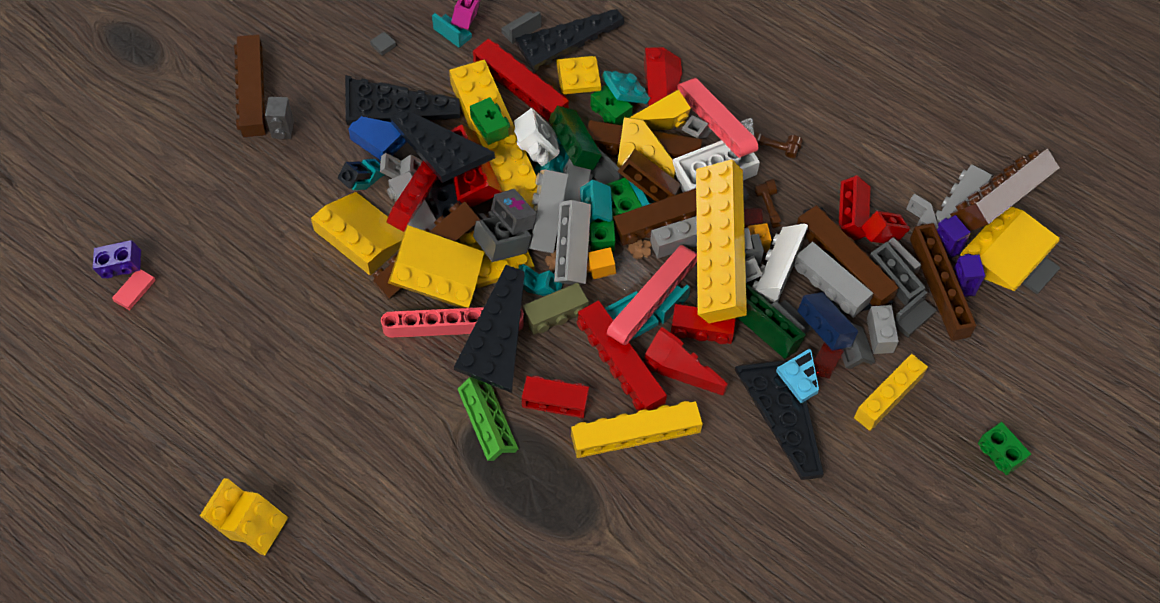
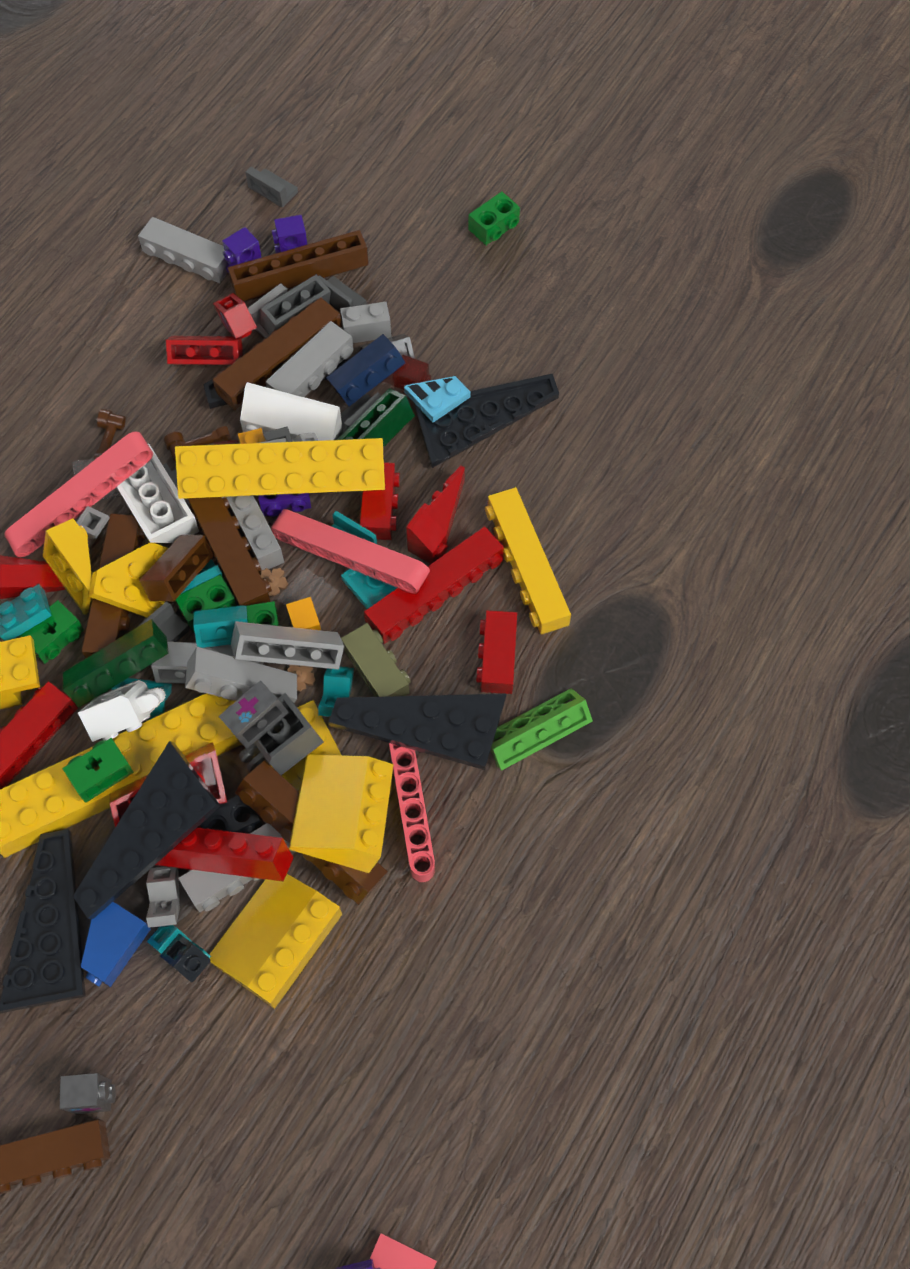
camera: 95 degrees left, 5 degrees up
(244, 516) = (732, 998): yellow bracket -> none
(890, 392) = (444, 314): yellow brick -> none
(923, 210) = (214, 282): light grey slope -> none
(1005, 189) = (180, 198): brick -> none
(1011, 247) = (249, 199): yellow slope -> none

